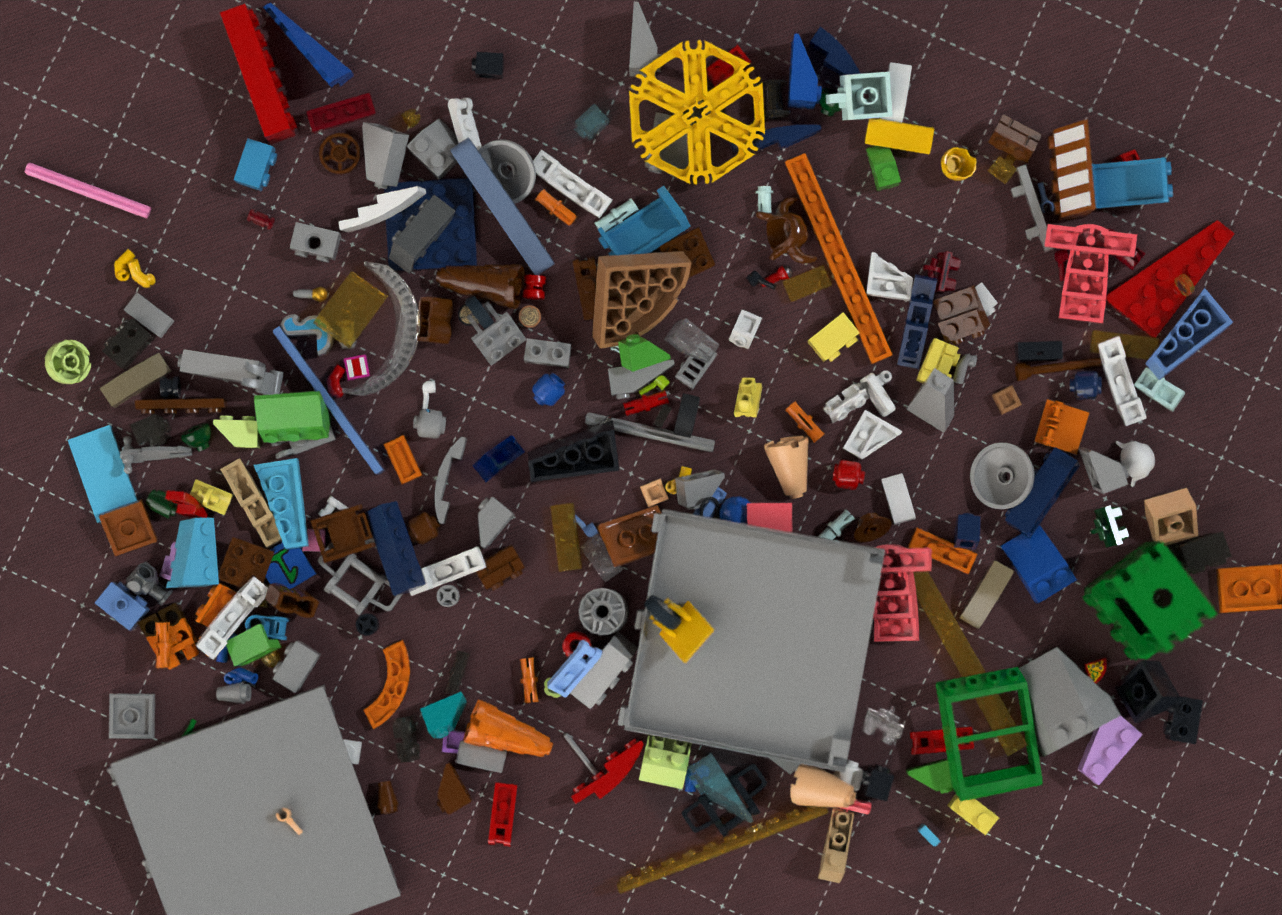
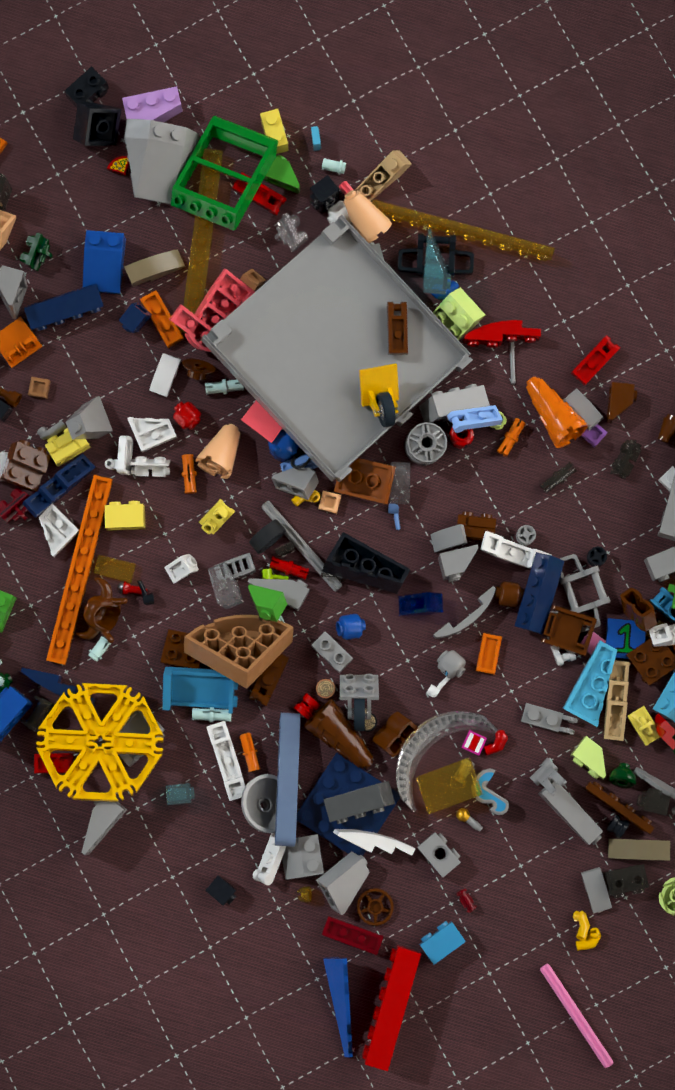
camera: 140 degrees left, 5 degrees down
(292, 417) = (546, 737): bright green slope -> none
(329, 401) = (511, 734): medium blue tile -> none
(395, 687) = (607, 501): orange tile -> none
(443, 715) = (588, 454): teal slope -> none
(517, 538) = (448, 538): none -> light grey slope
(566, 537) = (413, 516): clear yellow tile -> none
(710, 701) = (397, 329): none -> reddish brown plate
(884, 651) = (253, 279): none -> medium nougat tile
(891, 820) = (334, 166): none -> light aqua pin
(989, 475) = (93, 341): light grey dish -> none
(1136, 580) = (43, 197): green piece -> none

